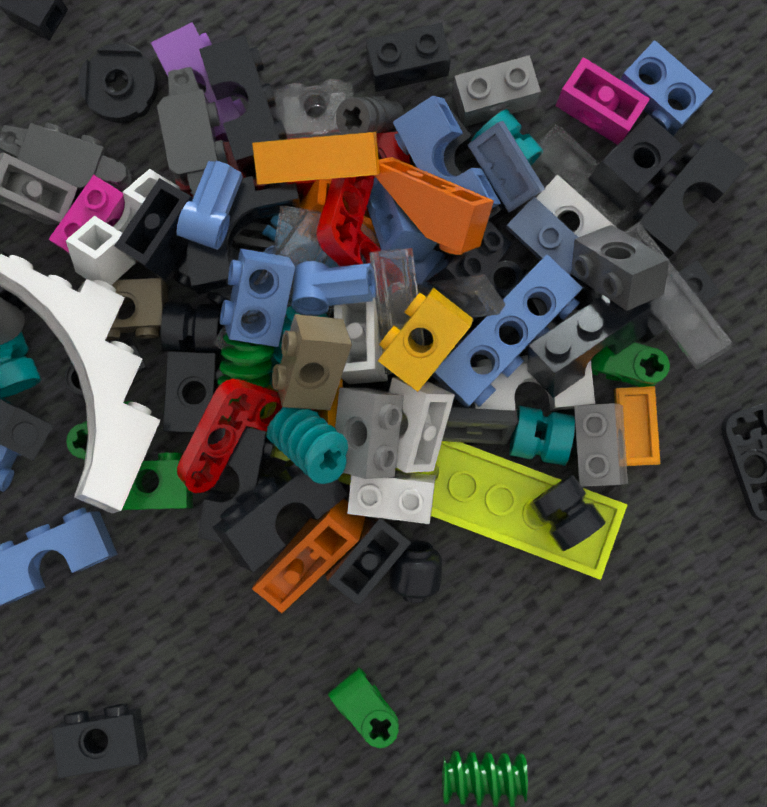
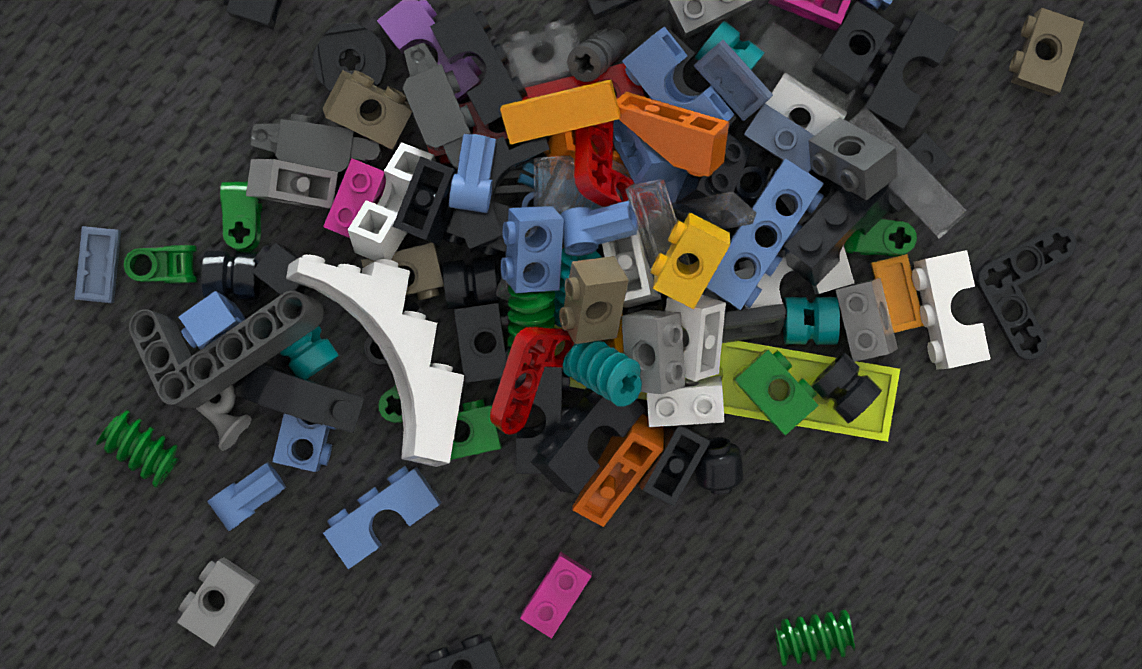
camera: 20 degrees left, 5 degrees up
(98, 124) = (383, 124): none -> dark tan brick
(214, 677) = (556, 595): none -> dark pink brick
(360, 704) = (691, 594): green piece -> none
(497, 527) = (784, 413): none -> green brick
(686, 484) = (950, 341): none -> white arch

